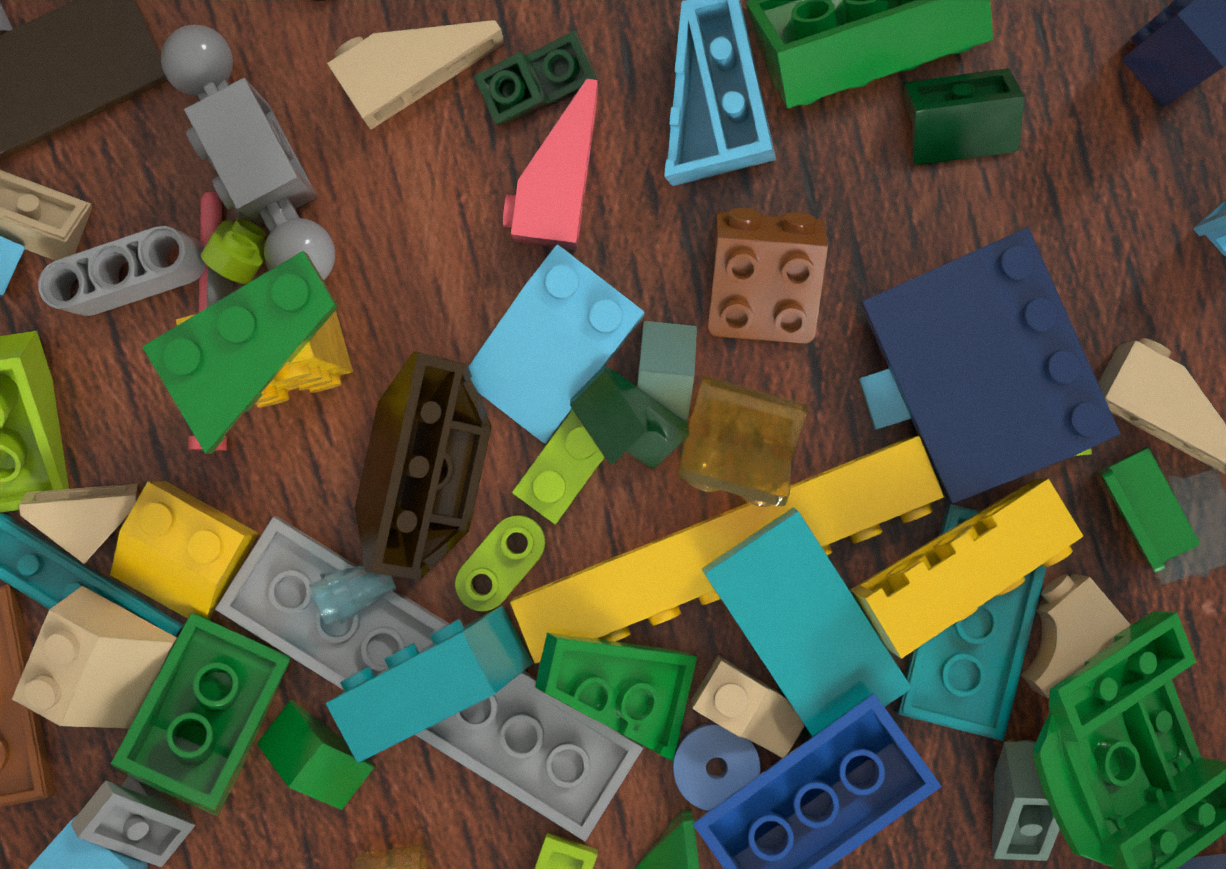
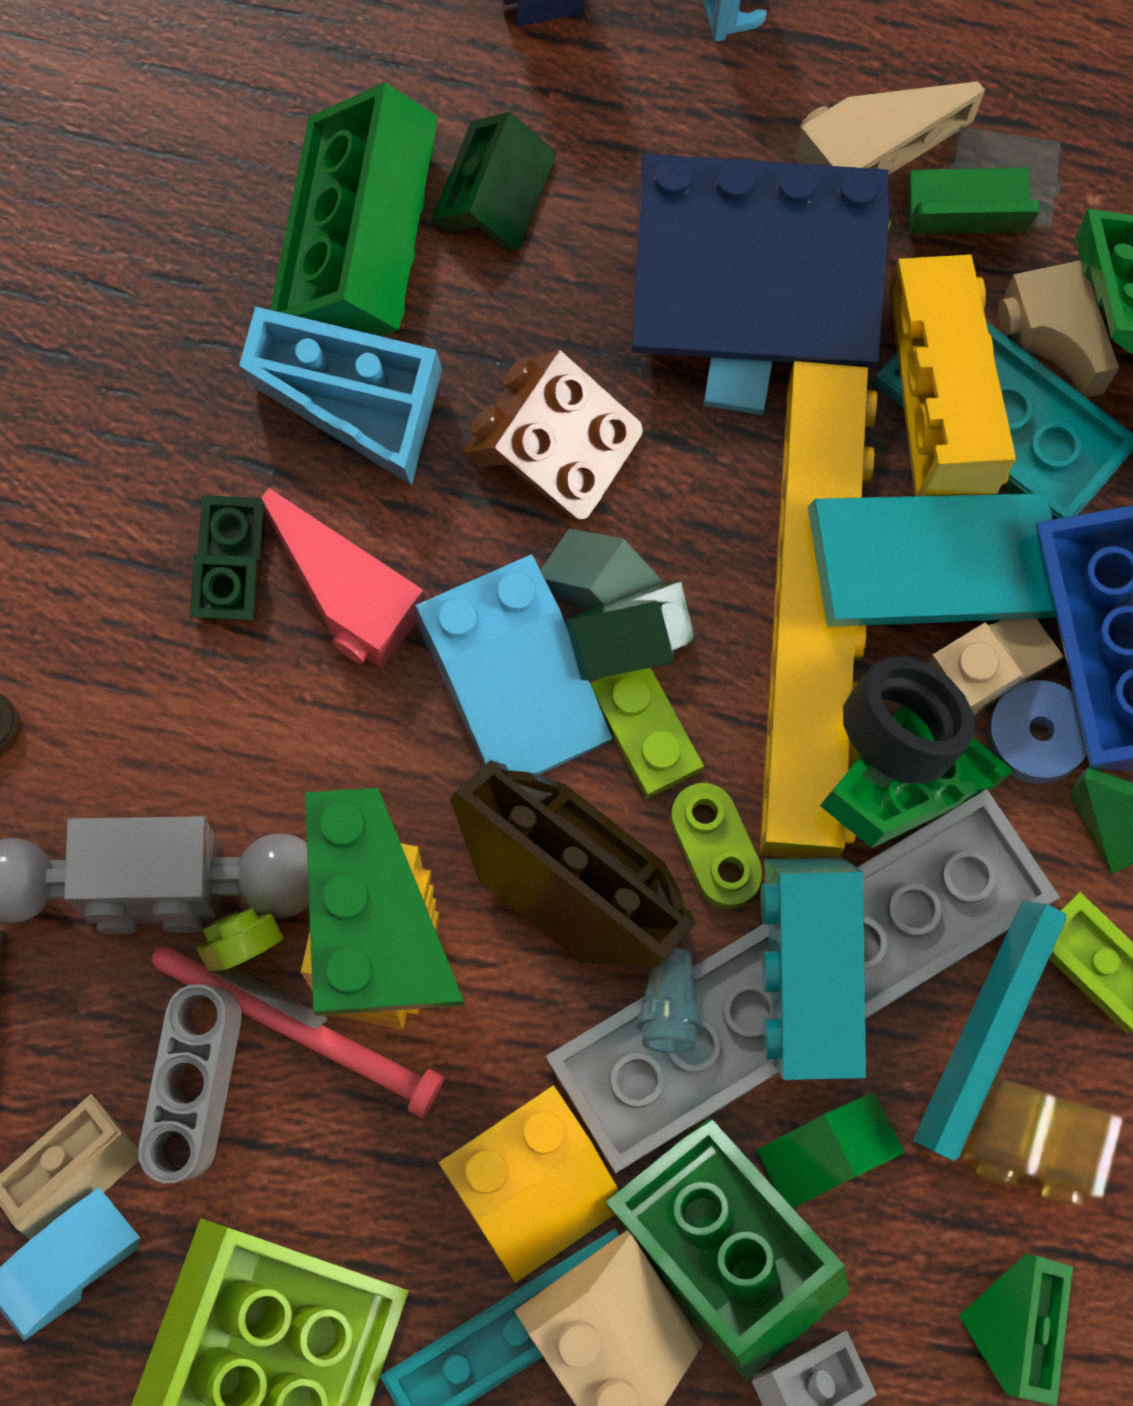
camera: 65 degrees left, 15 degrees down
(79, 516) = (438, 1267): tan slope -> none
(404, 65) = (137, 681): tan slope -> none
(454, 834) = (990, 1029): none -> teal tile
(685, 683) = (891, 746): none -> black tyre
(741, 442) = (712, 531): clear yellow bracket -> none

